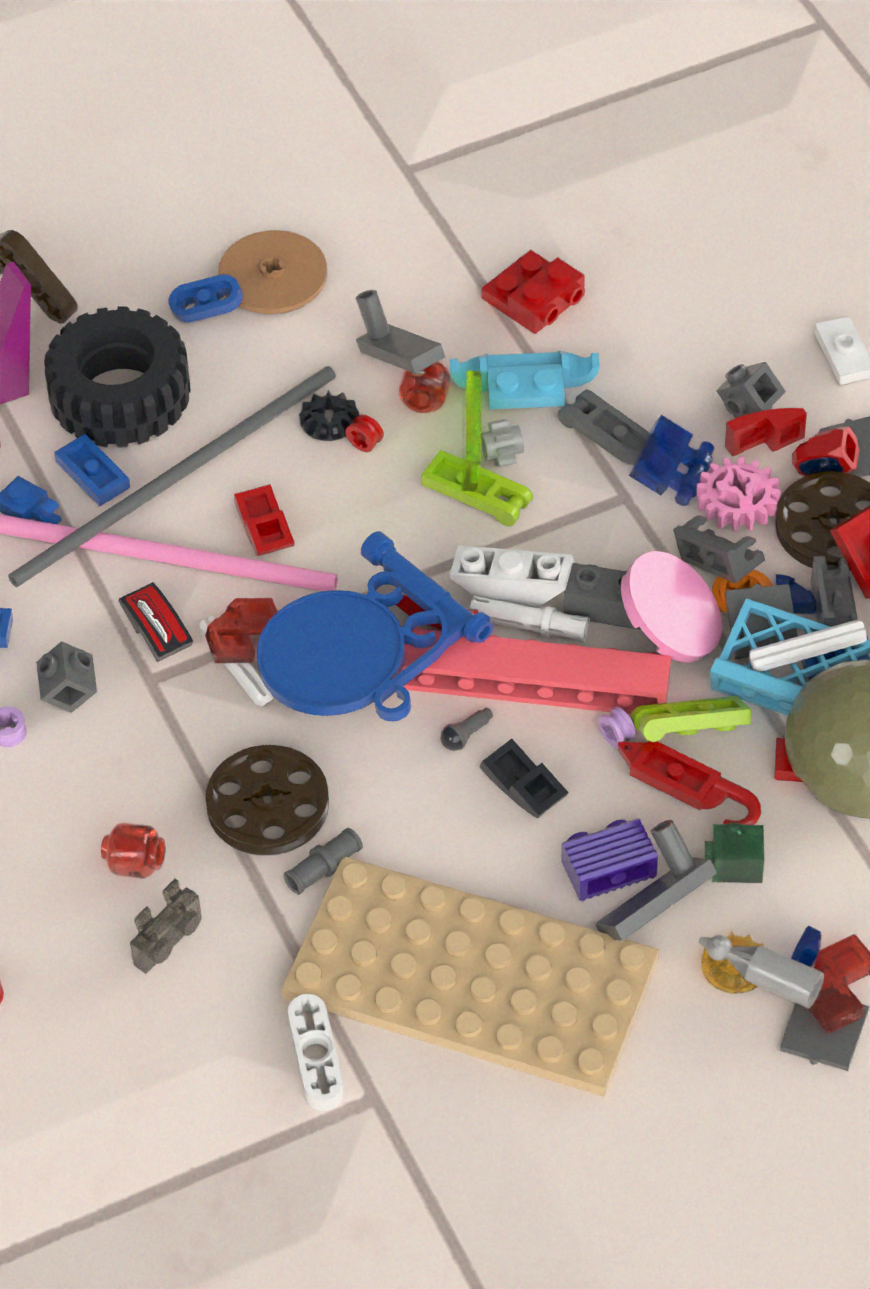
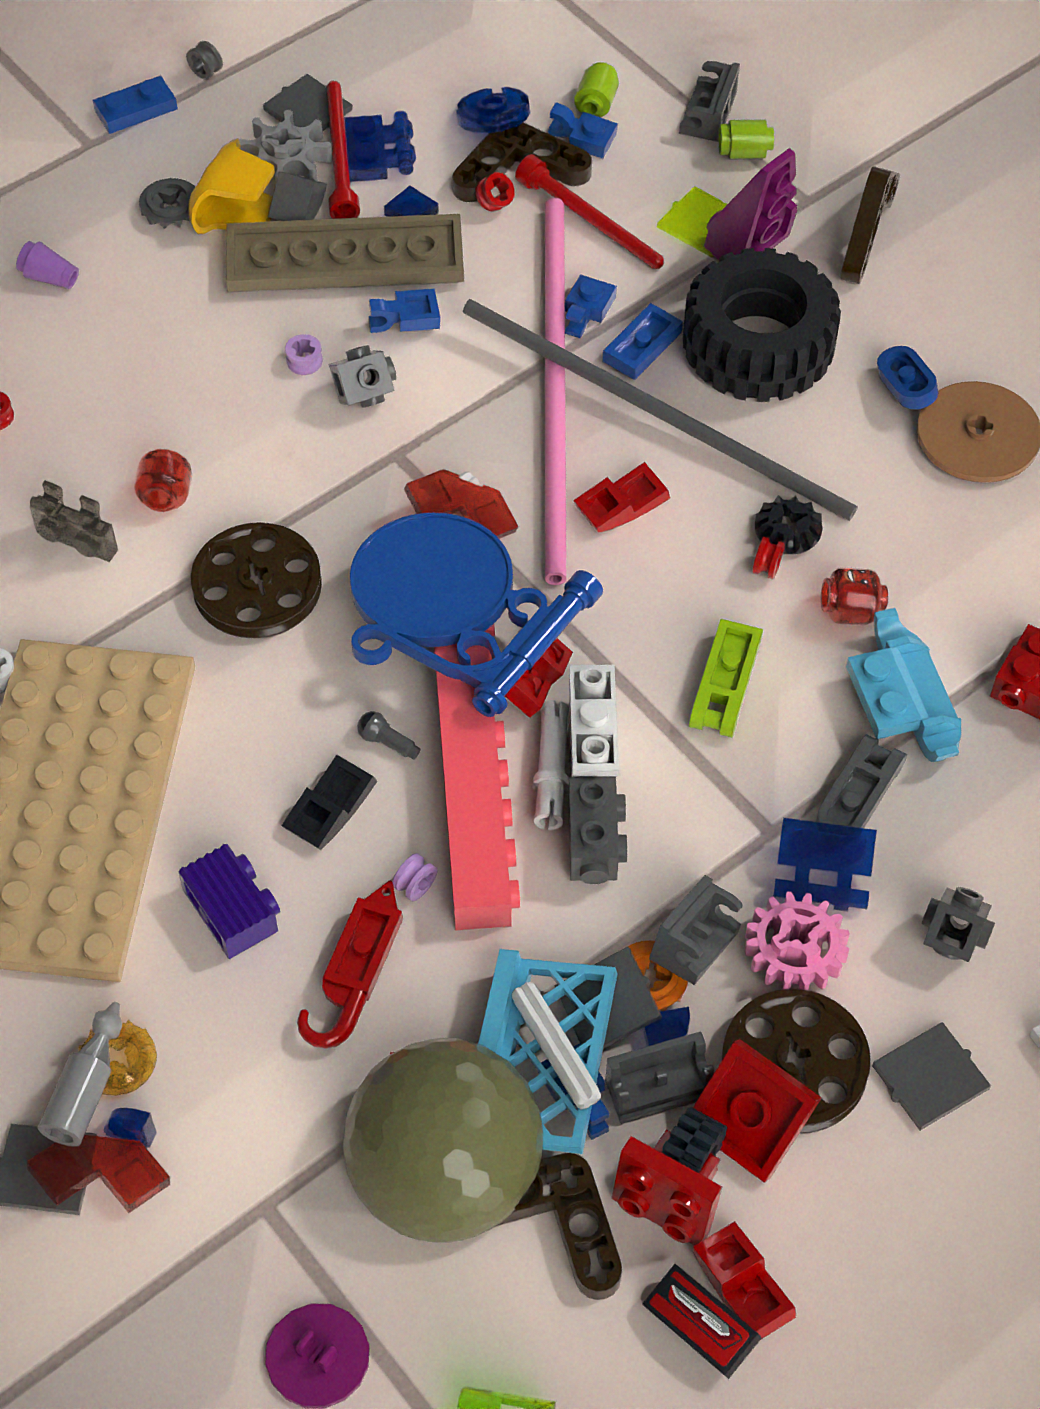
camera: 75 degrees right, 5 degrees up
(156, 621) = (459, 435): slope -> none
(322, 861) = (184, 641): dark grey pin -> none
(393, 343) = (899, 550): dark grey piece -> none
(471, 431) = (788, 646): clear neon green tile -> none
(502, 443) = (793, 685): light grey gear -> none
(672, 606) = (583, 891): bright pink tile -> none
(684, 876) = (211, 977): piece -> none
(690, 716) = (441, 947): lime plate -> none
(736, 853) = (260, 1029): clear green brick -> none
(773, 426) = (916, 964): red slope -> none
(827, 451) = (892, 1031): red rock -> none

